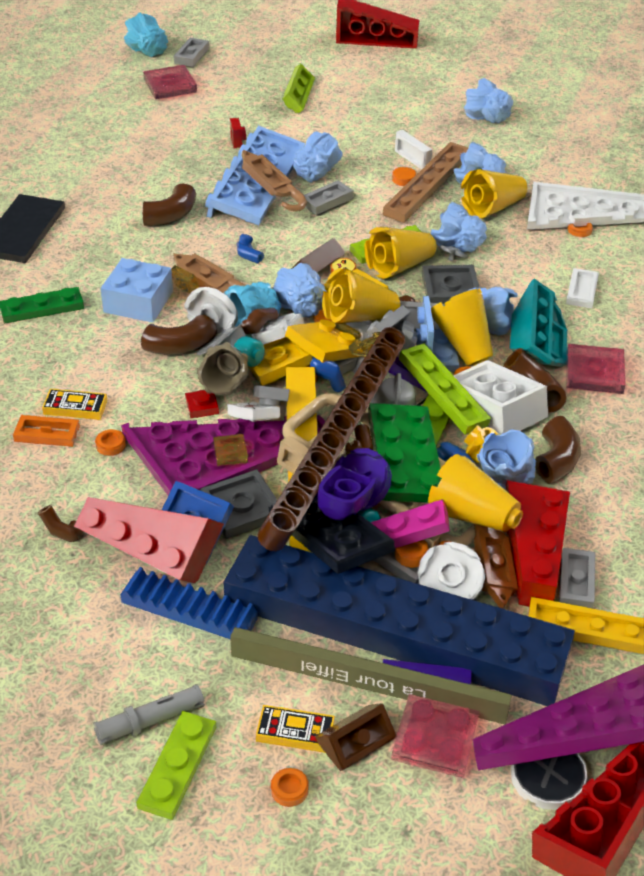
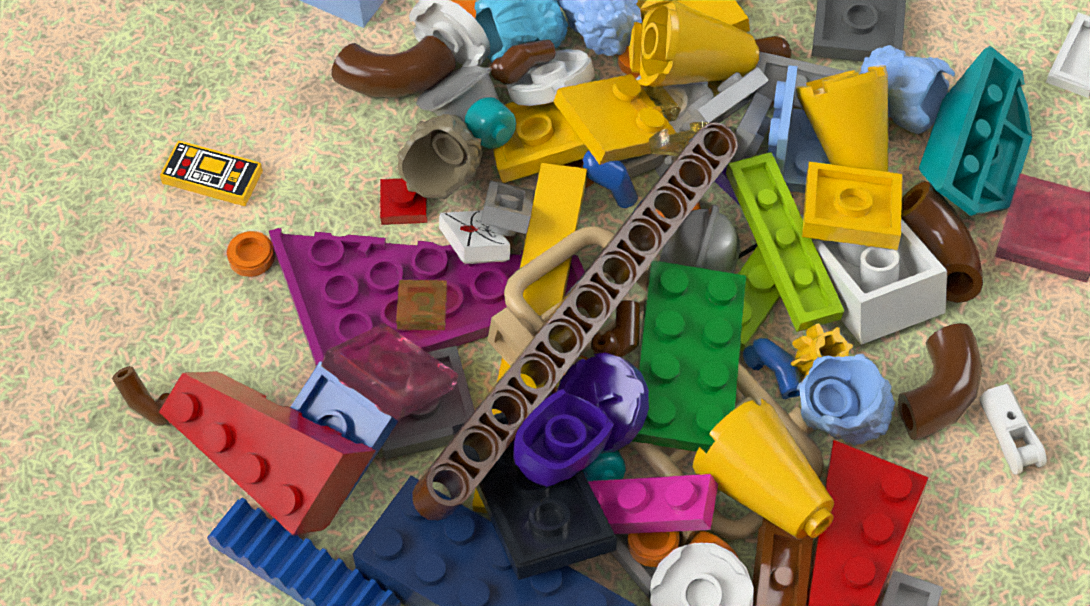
camera: 15 degrees right, 15 degrees up
(45, 434) = (200, 213): orange tile -> none
(225, 481) = (389, 371): none -> clear pink plate
(479, 364) = (852, 205): none -> yellow plate
(606, 469) = (1011, 424): none -> white bar

